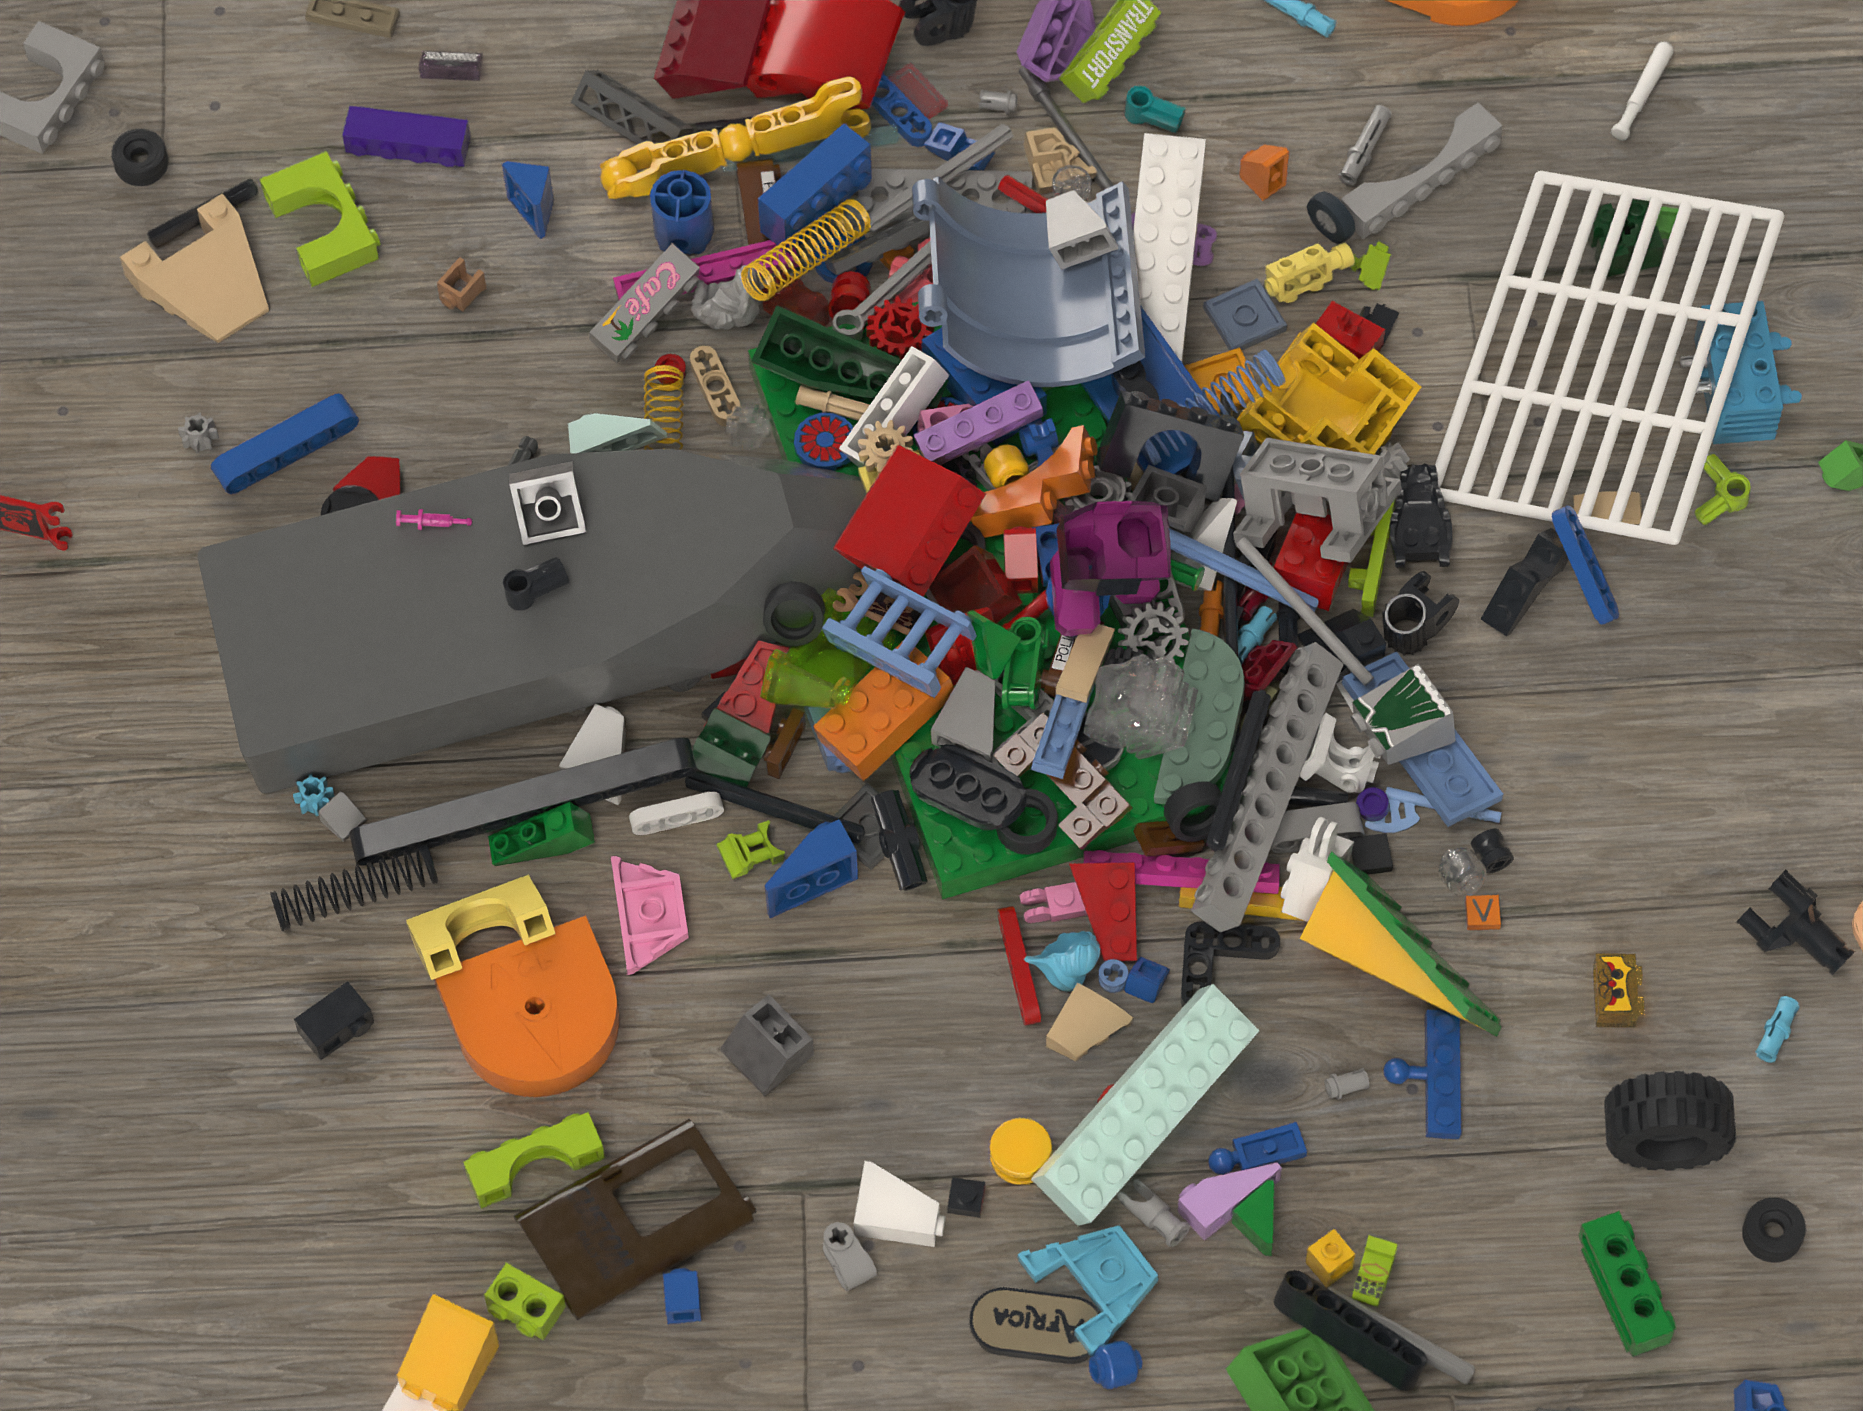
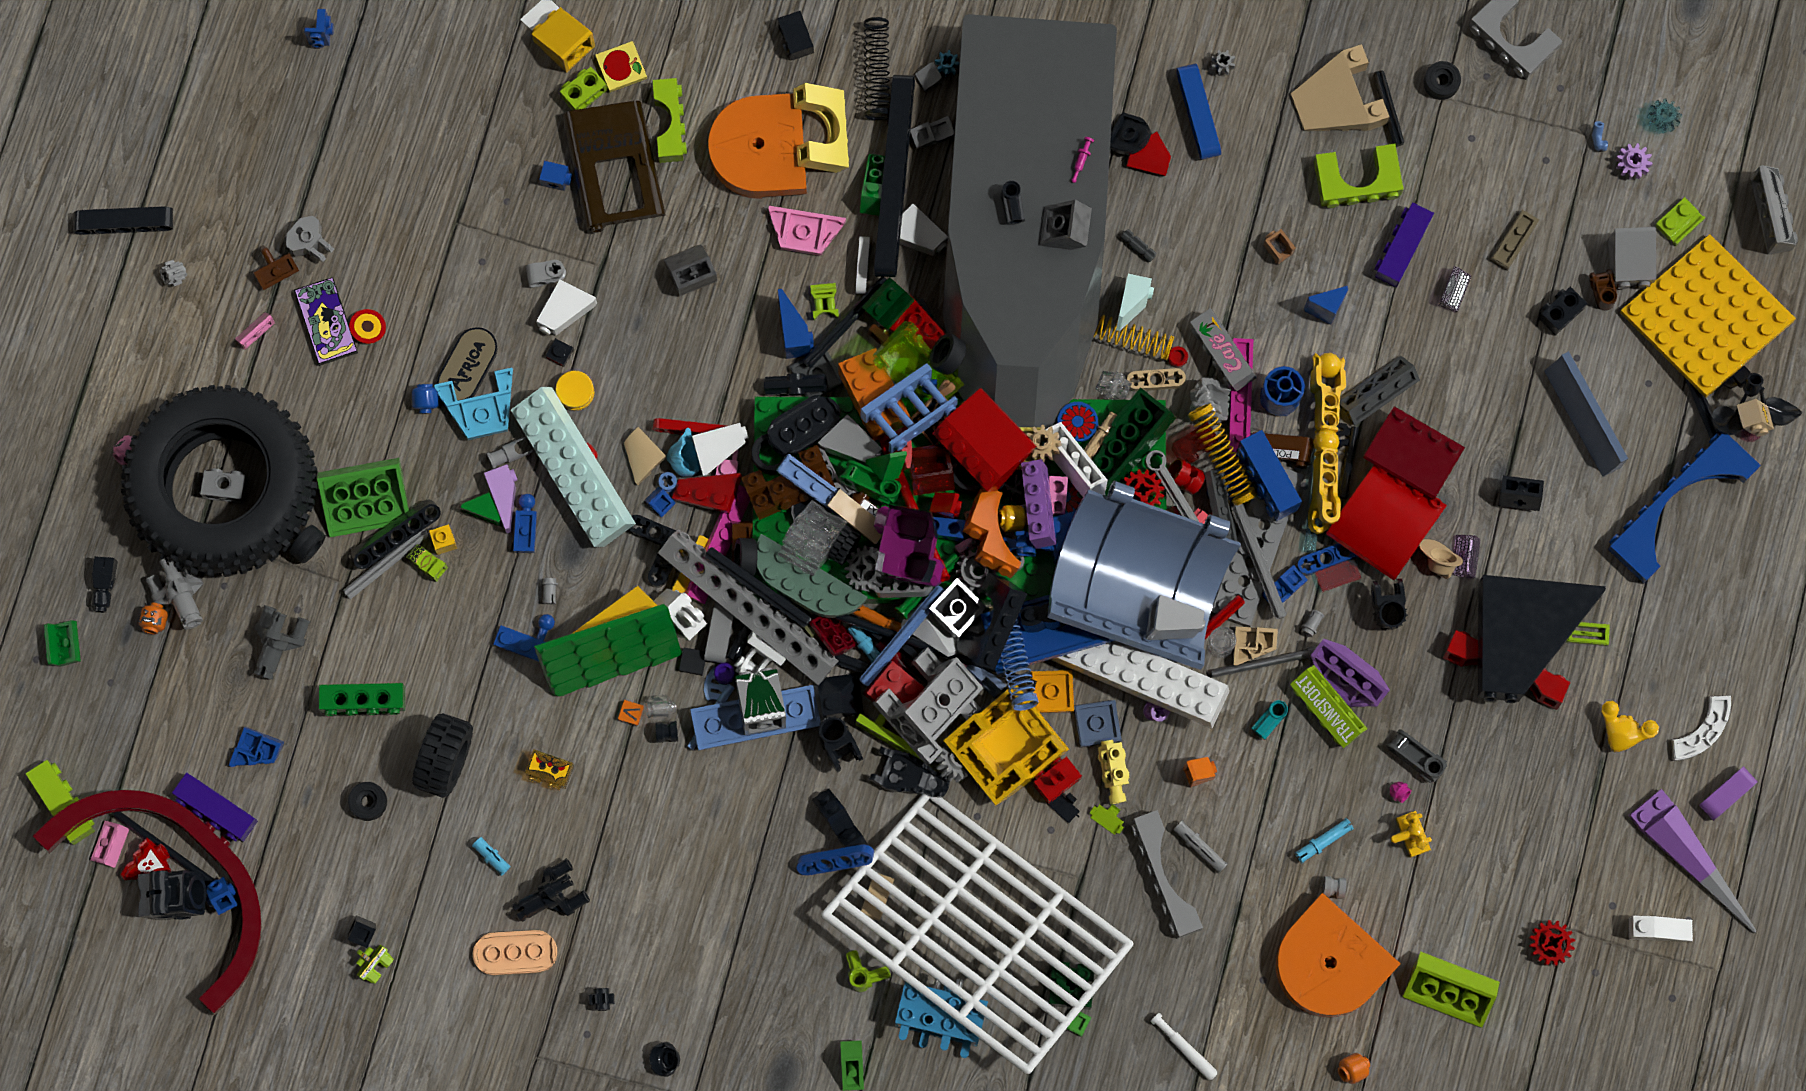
camera: 105 degrees right, 15 degrees up
(428, 782) = (933, 133): none -> light grey slope
(463, 1263) = (621, 66): none -> tile
(1038, 906) = (718, 445): none -> white slope
(1305, 611) = (858, 670): light grey piece -> none
(1331, 217) = (1147, 800): black bush -> none

